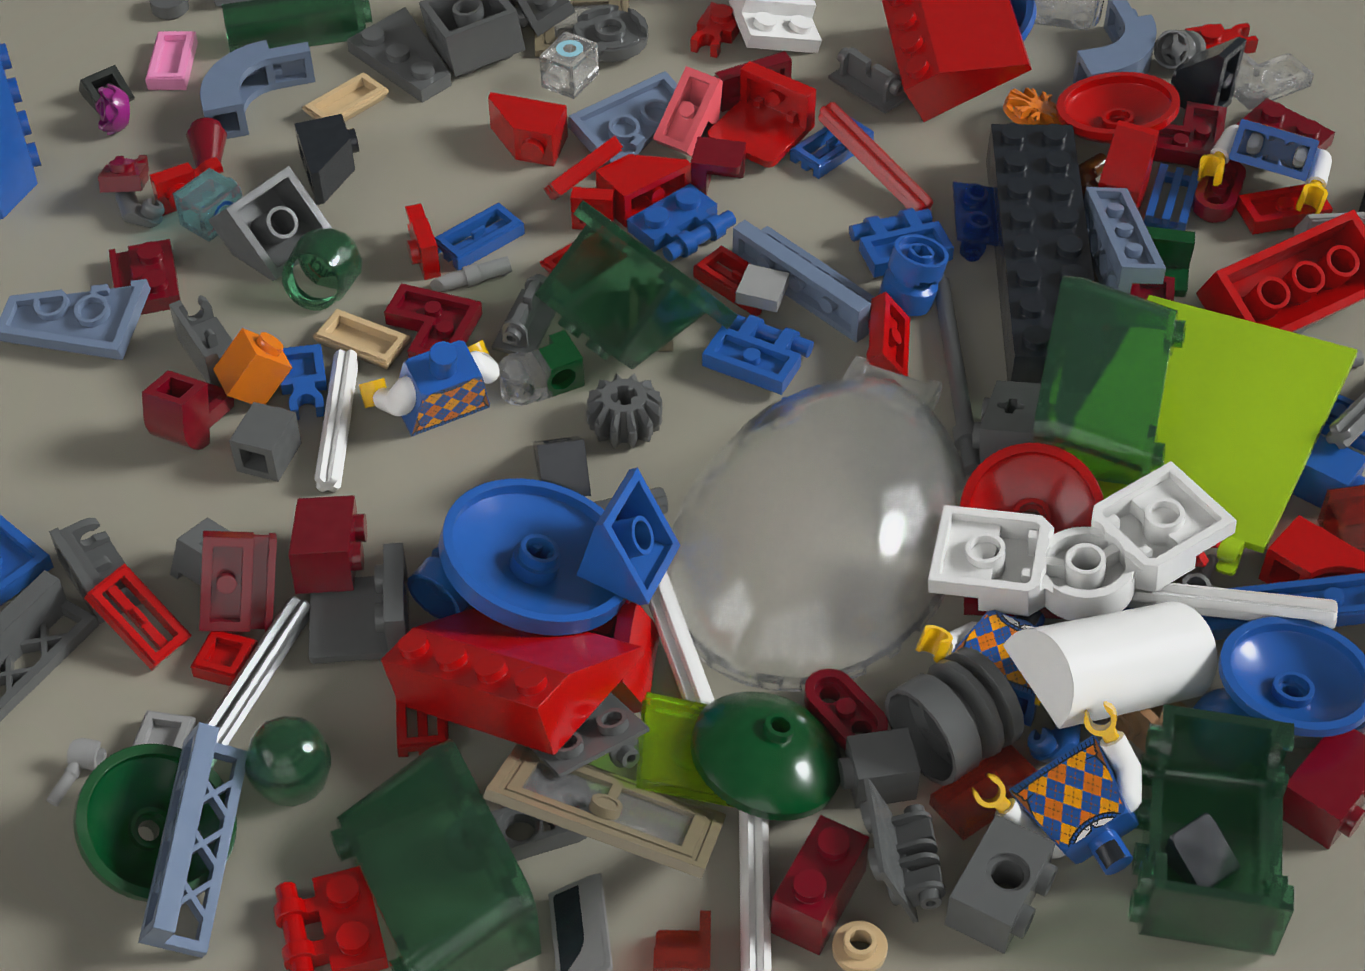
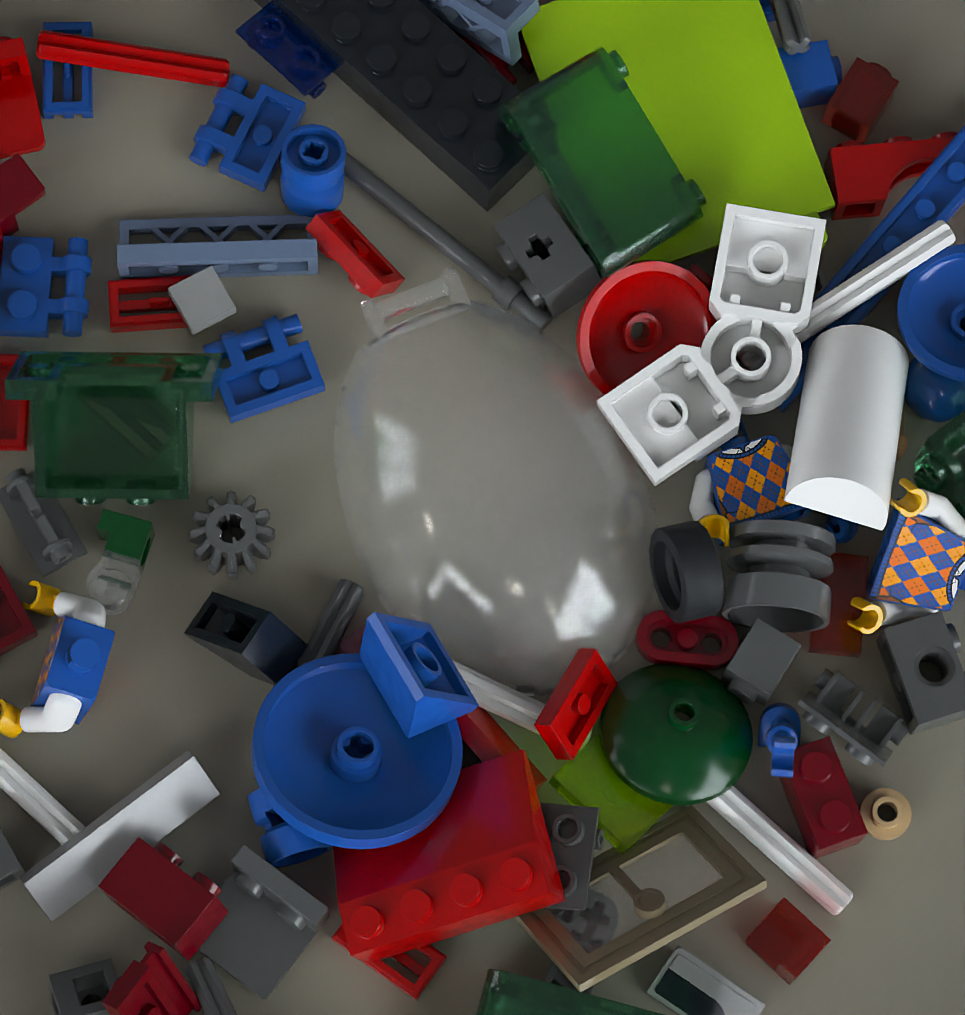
camera: 55 degrees left, 25 degrees up
(382, 500) = (145, 813): none -> light grey tile
(714, 664) = (575, 704): none -> red plate
(825, 797) = (781, 733): none -> blue piece
(886, 649) = (686, 571): none -> black tyre

